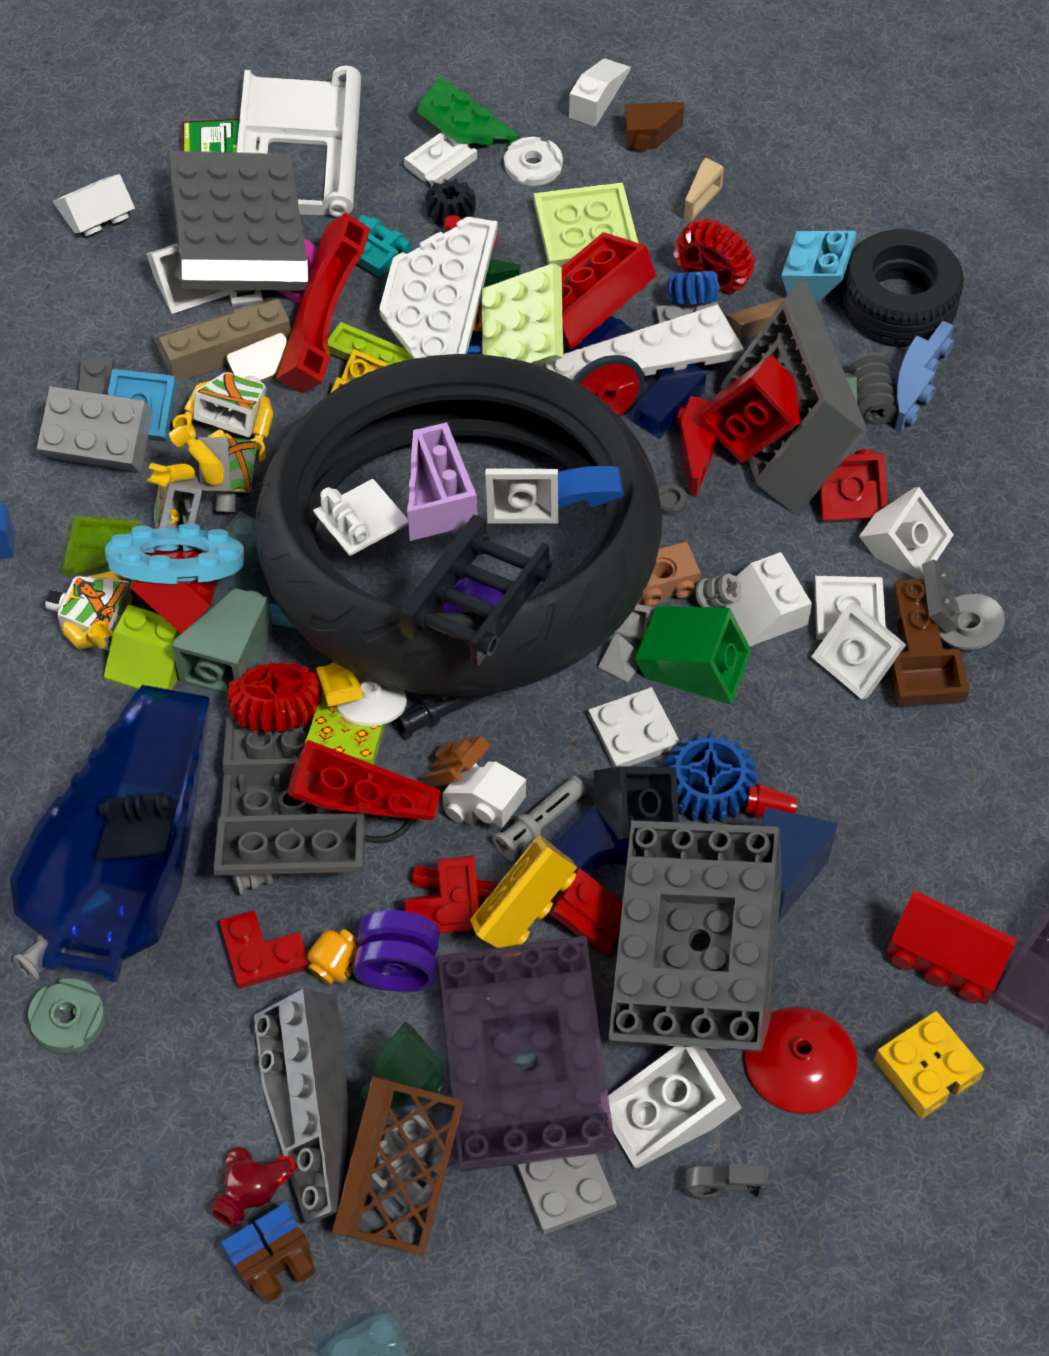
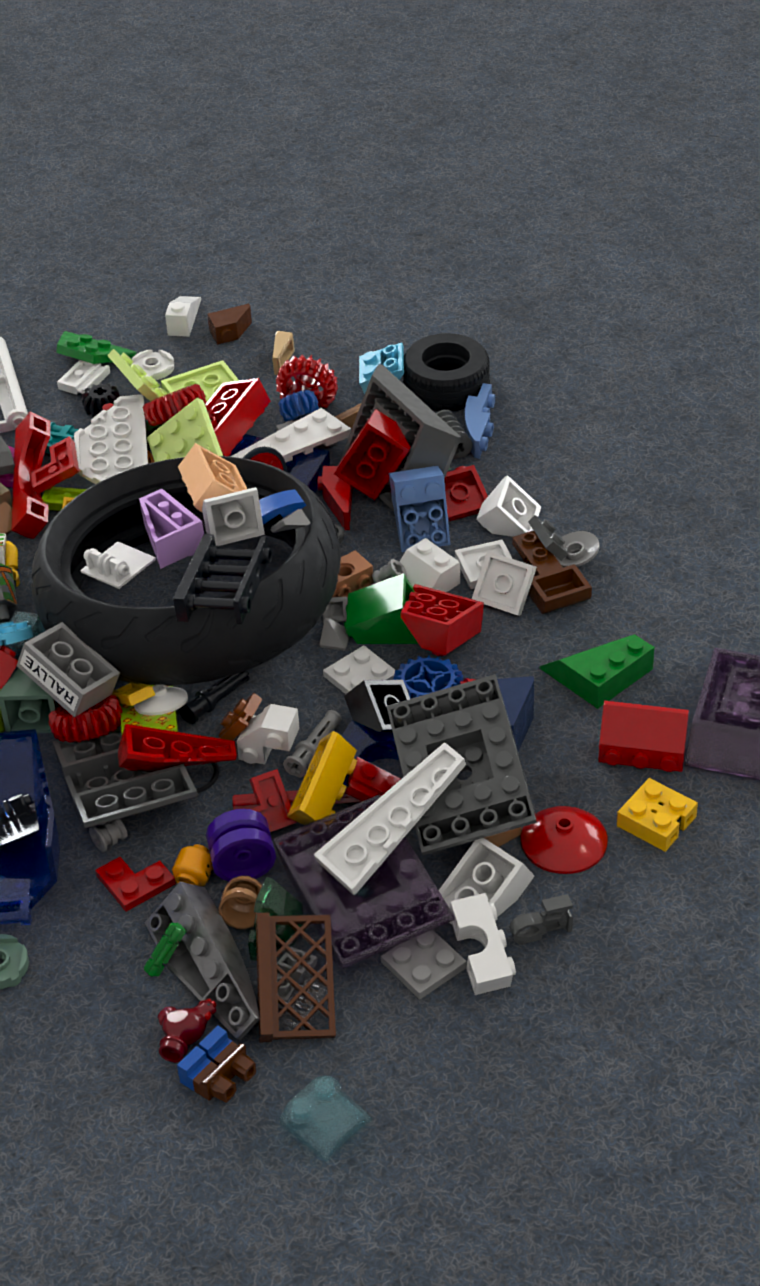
camera: 15 degrees left, 15 degrees down
(260, 1069) = (164, 949): none -> green axle
(263, 638) = (68, 669): none -> light grey brick
(361, 306) = (62, 466): none -> red plate
(371, 1028) = (239, 902): none -> medium nougat helmet
(507, 205) = (137, 376): none -> yellowish green plate
(522, 420) = (208, 475): none -> light nougat slope
(528, 251) = (166, 406): none -> red gear
(555, 1003) = (377, 831): none -> white wing
(596, 516) = (292, 521): none -> light grey slope
(642, 1226) = (476, 920): none -> white arch
(756, 685) = (441, 619): none -> red wedge
(789, 503) = (420, 506): none -> medium blue slope
(940, 817) = (603, 670): none -> green wedge

